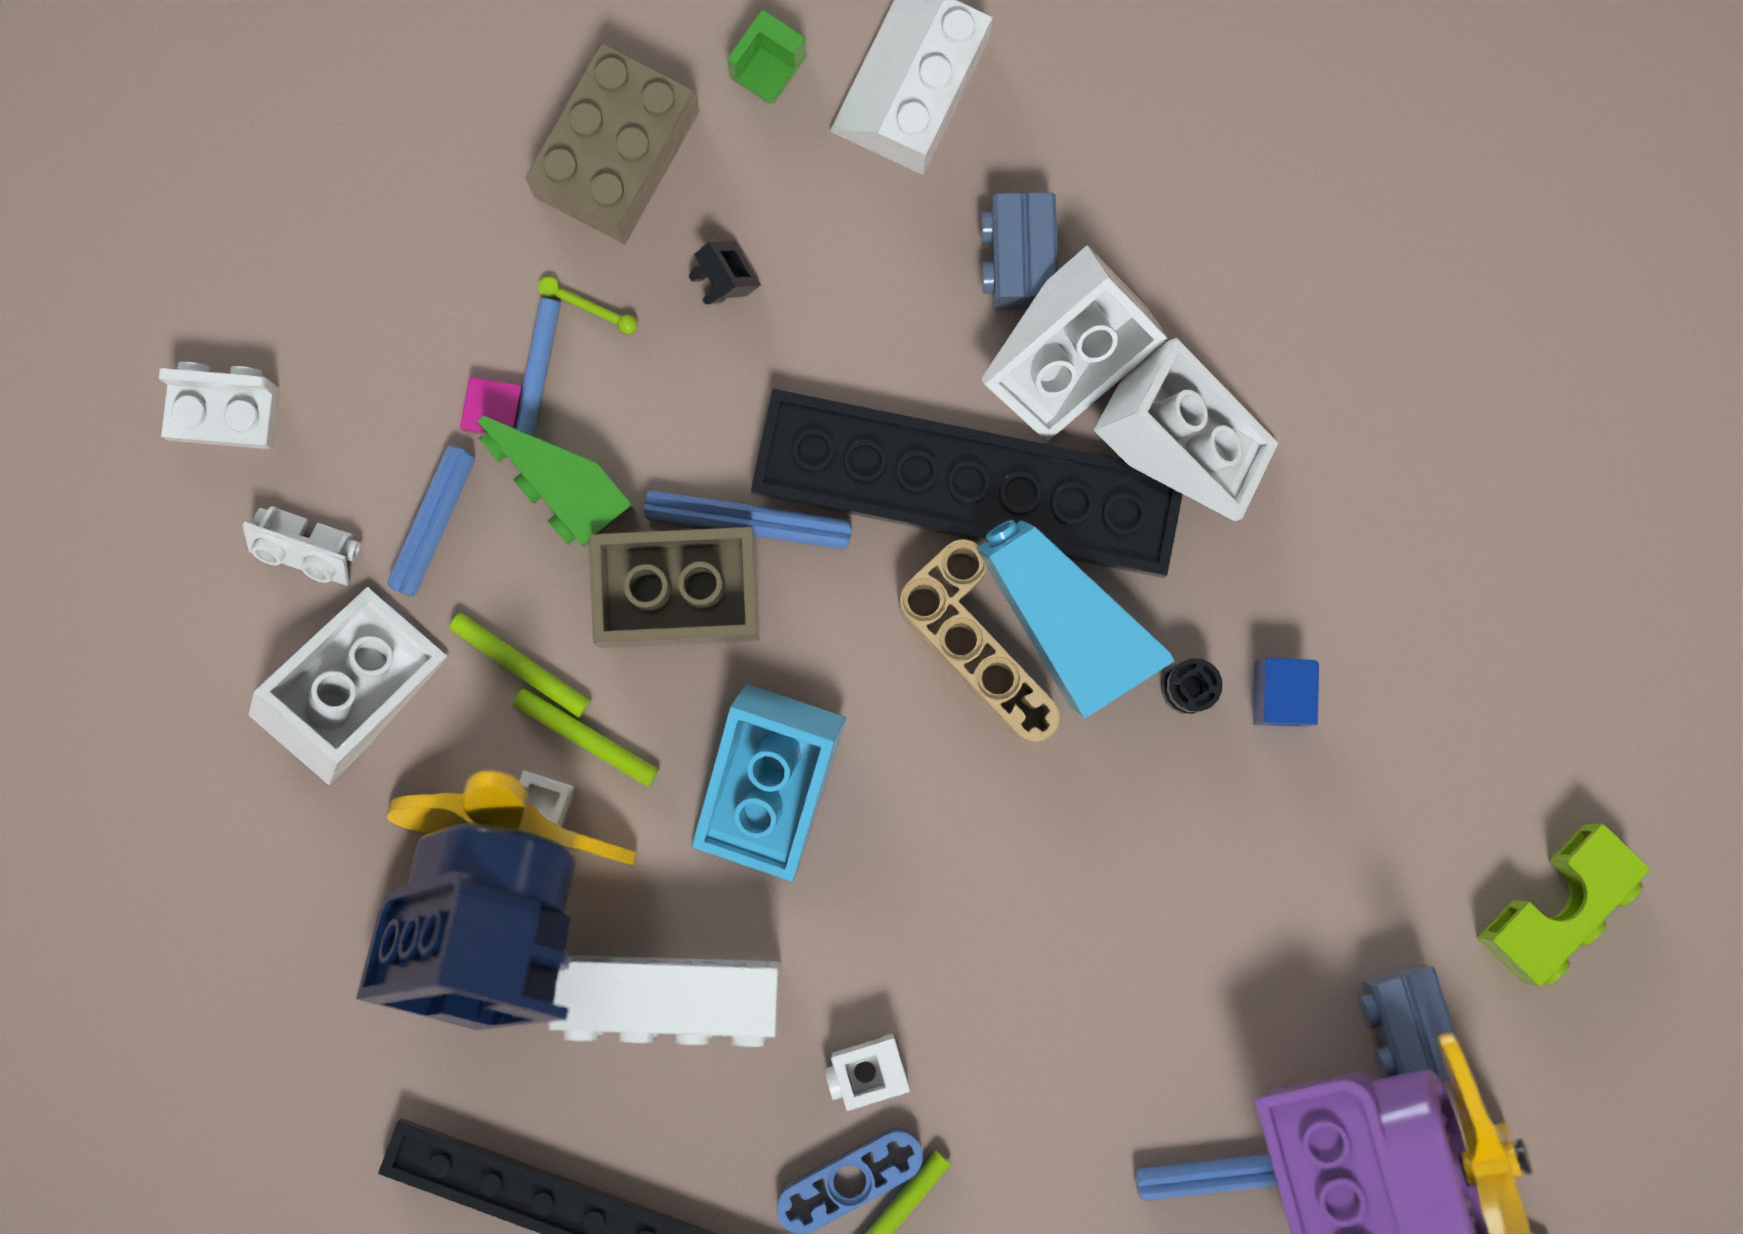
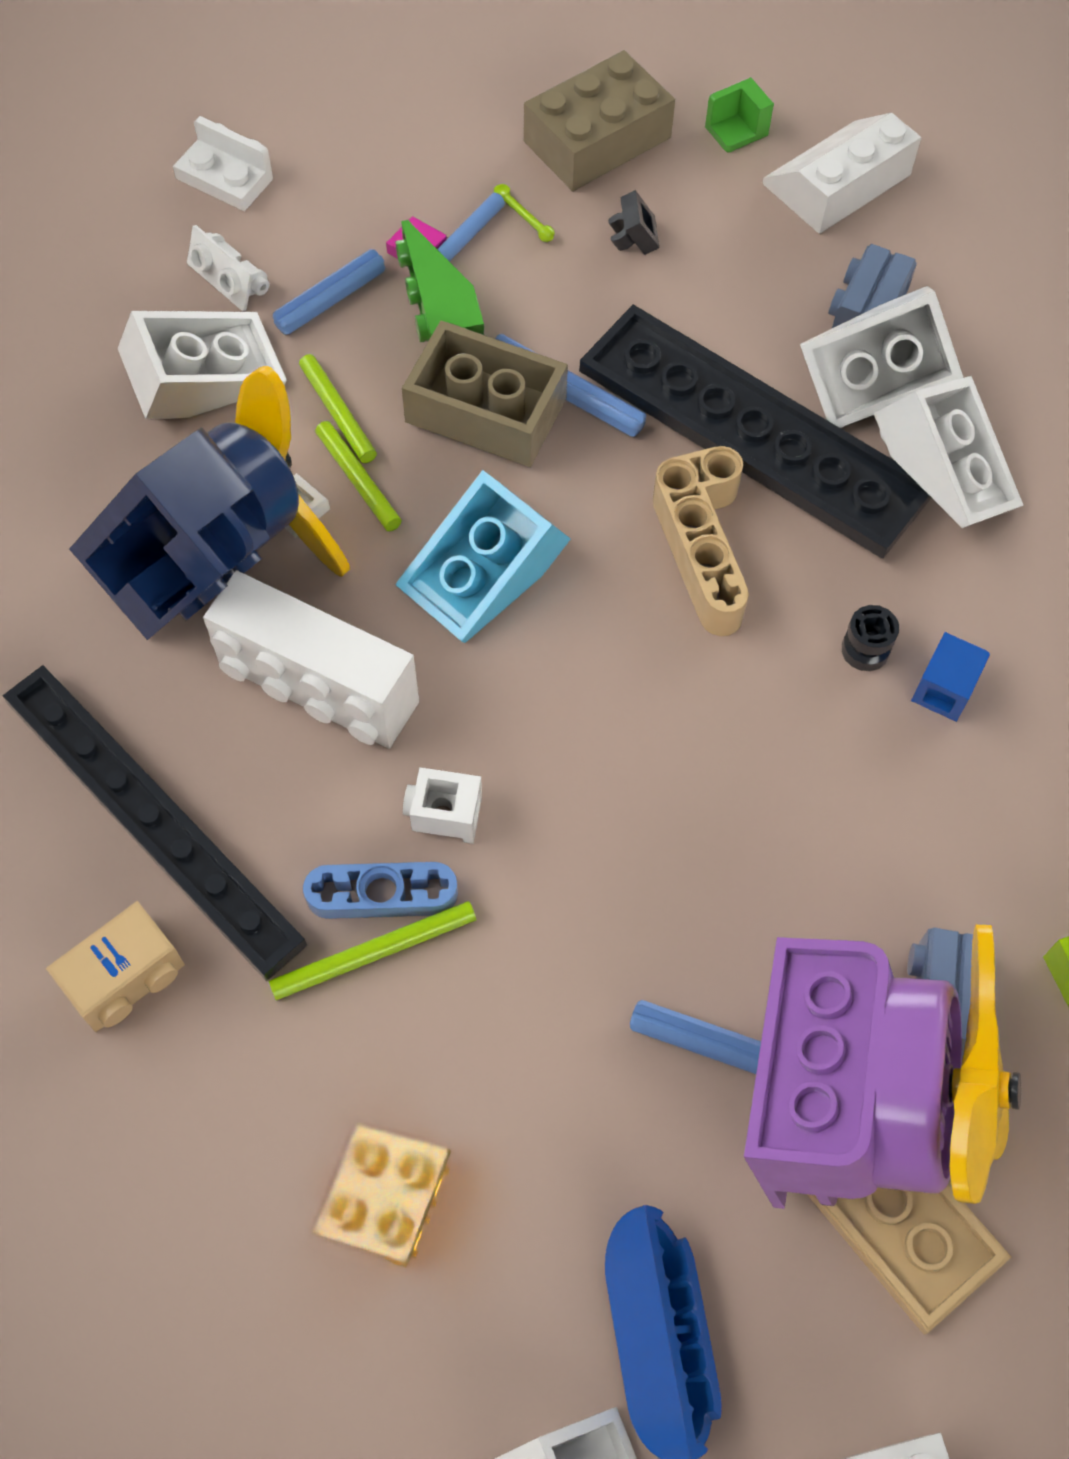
camera: 30 degrees right, 20 degrees down
(1073, 623) = (791, 538): medium azure slope -> none

